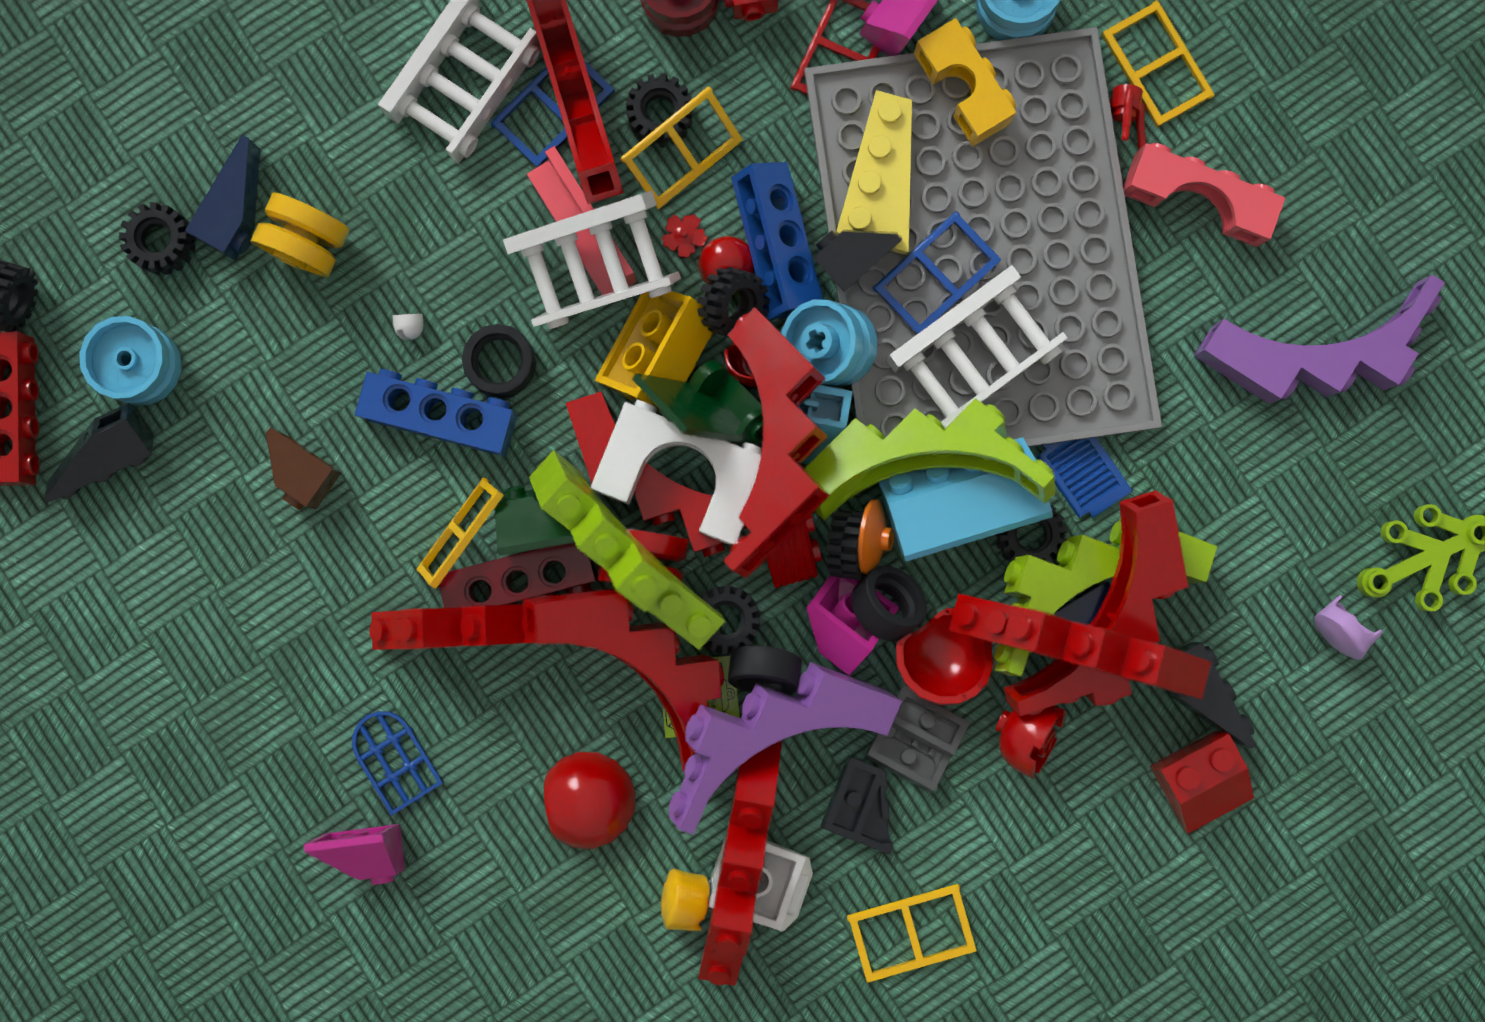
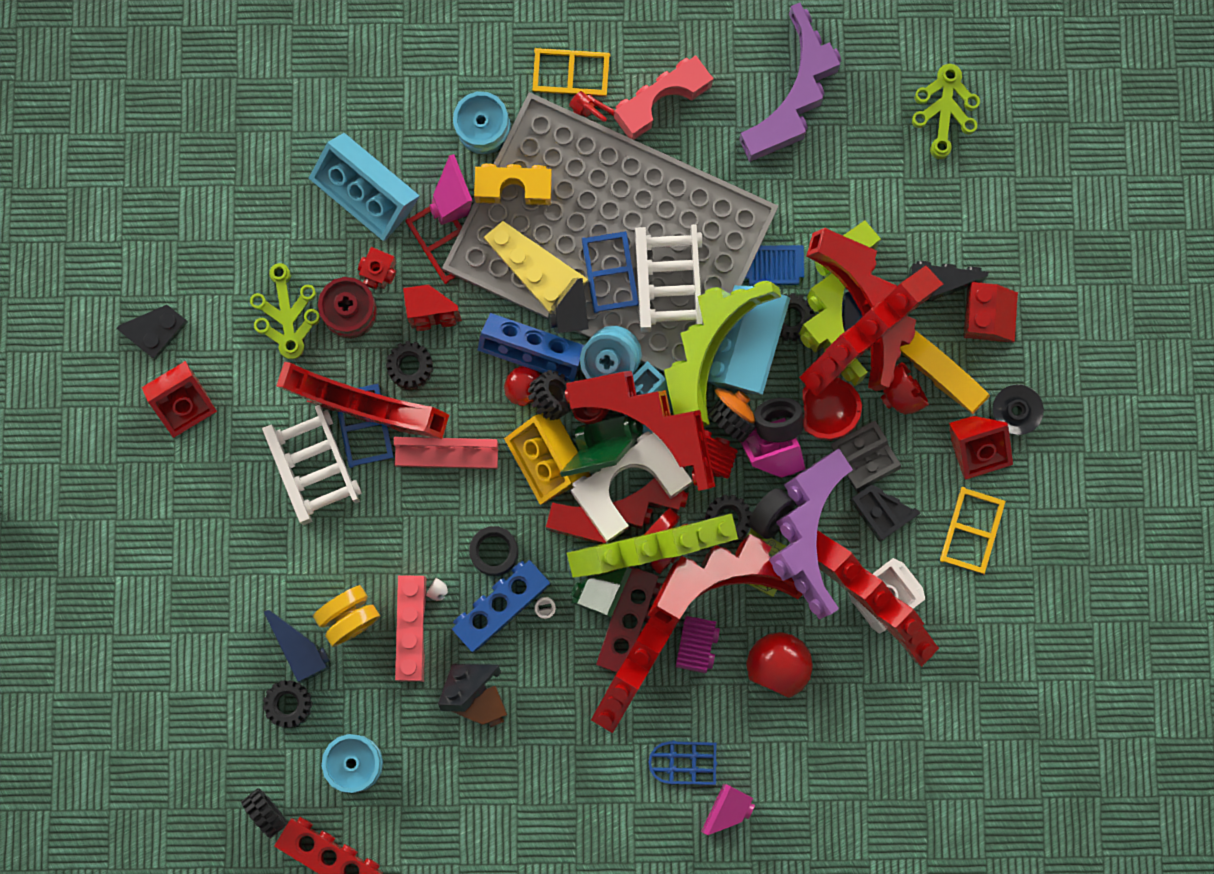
camera: 60 degrees left, 5 degrees down
(105, 447) = (392, 814): black slope -> none
(309, 433) = (465, 684): none -> black wing
(310, 339) = (410, 629): none -> coral arch
(464, 536) = (586, 633): yellow window -> none
(465, 472) = (546, 612): none -> white hinge
(544, 681) = (696, 645): none -> magenta brick
(599, 223) = (458, 439): white fence -> none
(684, 235) = (490, 399): red plant -> none
(684, 900) = (872, 644): yellow hair -> none
(696, 169) = (456, 366): yellow window -> none
(739, 80) = (429, 308): none -> red slope
(1026, 876) = (981, 445): none -> red slope
(1087, 773) = (945, 373): none -> yellow slope
(1118, 905) = (1026, 400): none -> black dish
(1344, 630) = (956, 183): lavender hair -> none

